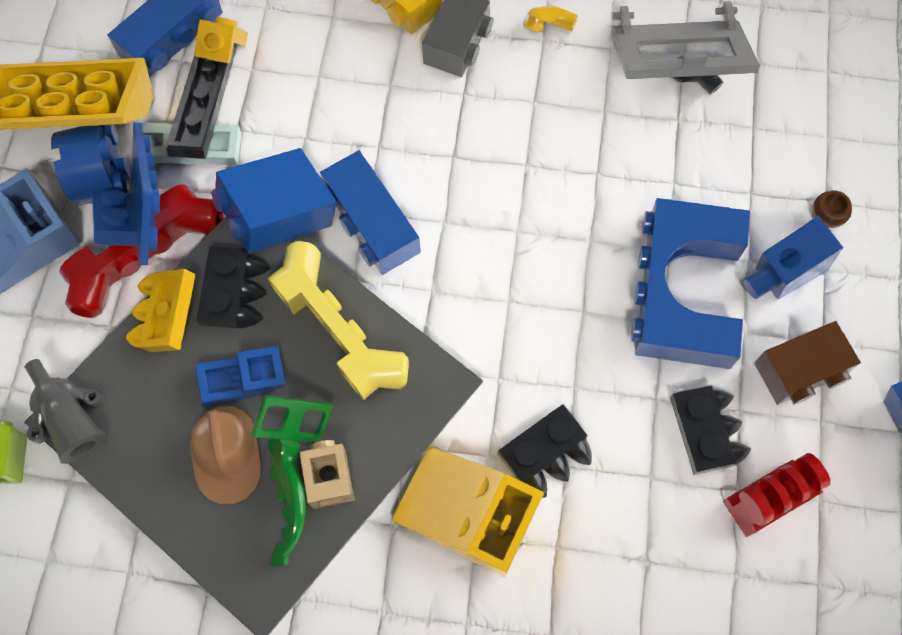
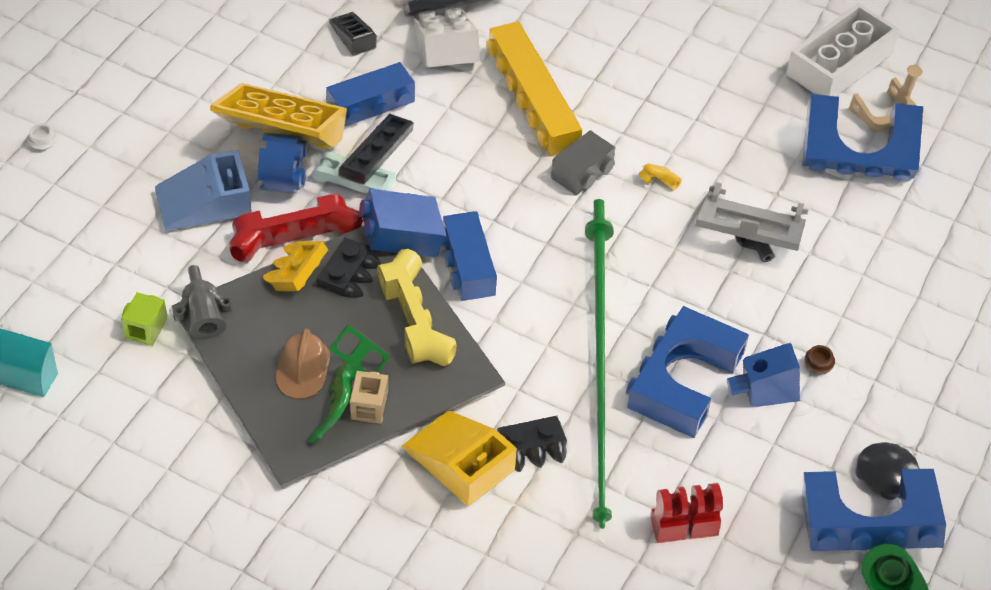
camera: 15 degrees right, 20 degrees down
(129, 217) = (301, 202): blue bracket -> none
(217, 39) = (403, 113): yellow bracket -> none
(240, 377) = (330, 323): blue slope -> none
(511, 122) = (599, 231): none -> green piece
(706, 430) = (658, 465): black plate -> none
(806, 363) = (750, 446): reddish brown brick -> none

